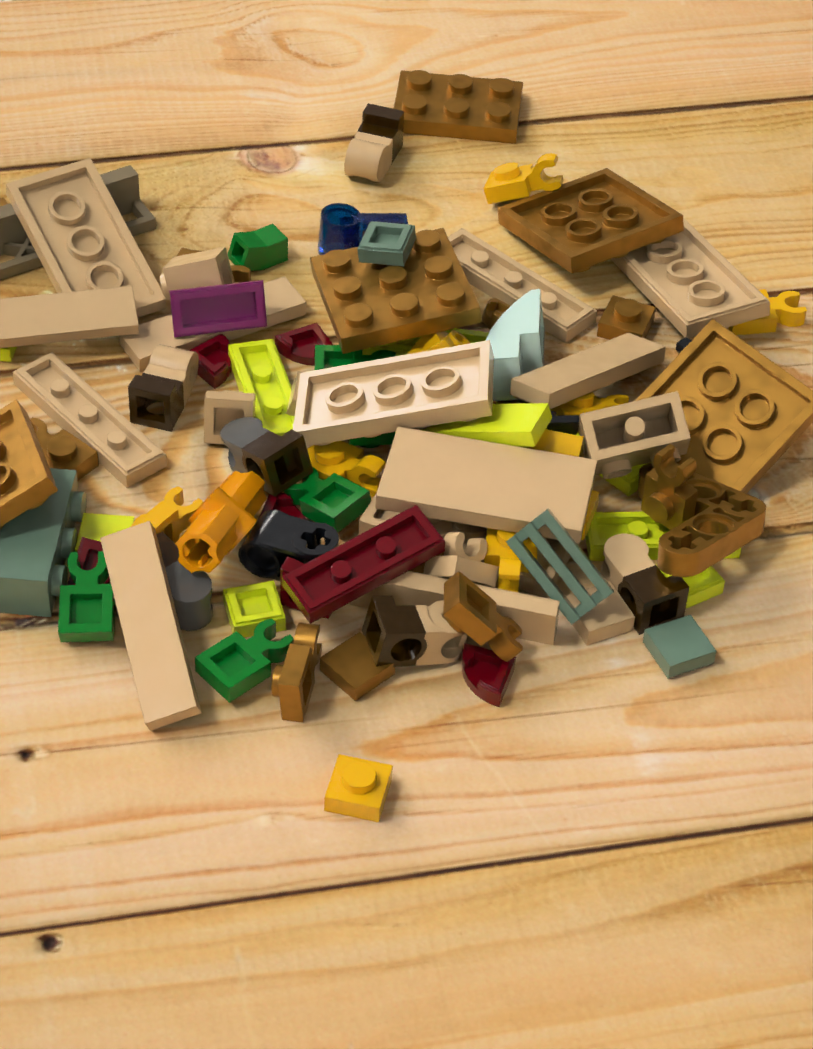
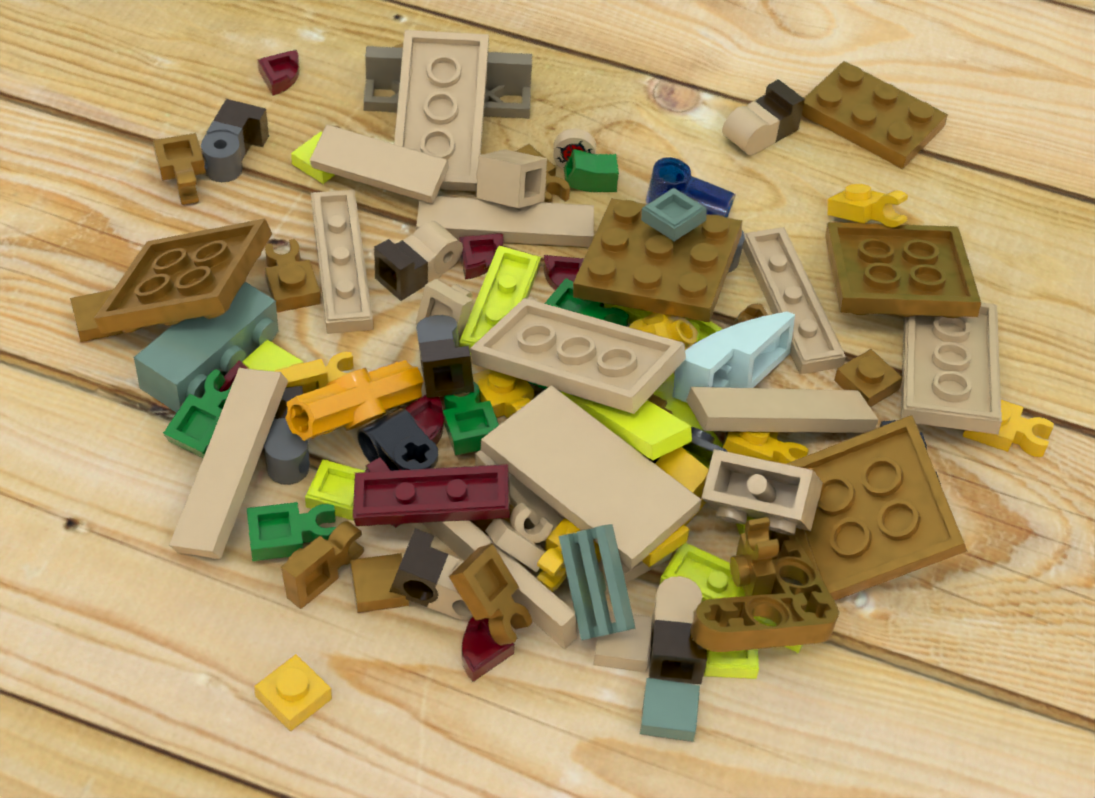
camera: 30 degrees right, 5 degrees up
(218, 308) = (505, 210): magenta tile -> none
(223, 228) = (570, 140): none -> tan tile

